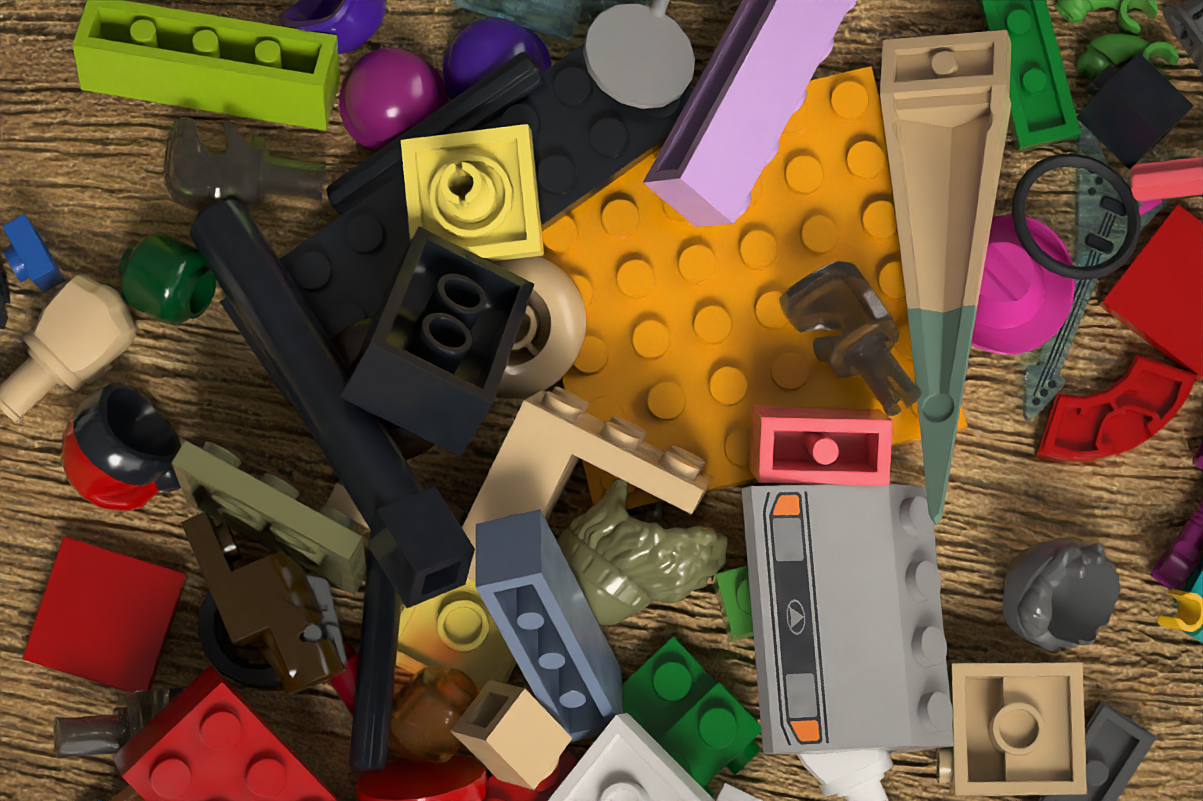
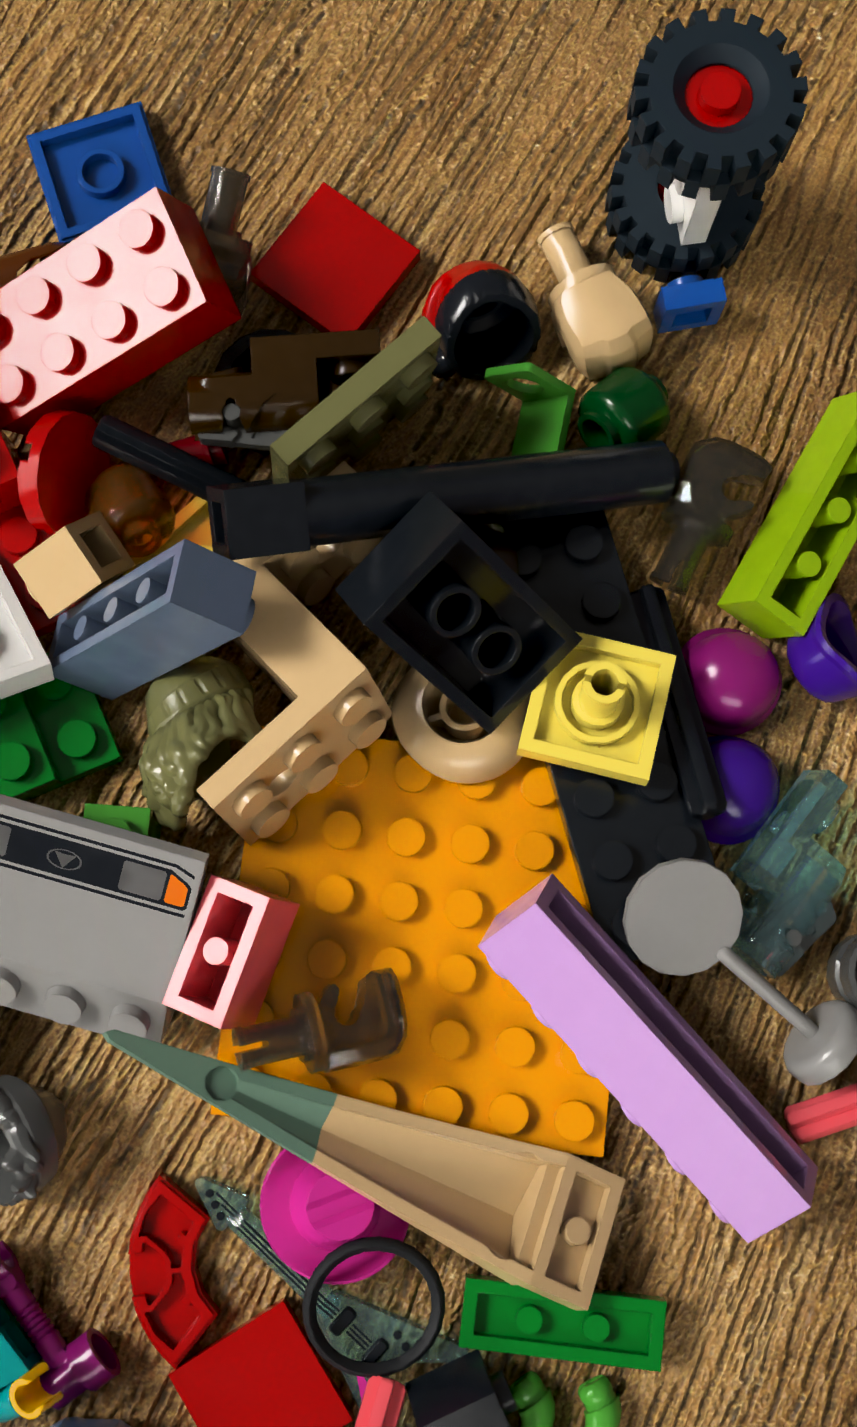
camera: 110 degrees right, 0 degrees up
(203, 356) = (544, 407): none -> bright green bracket

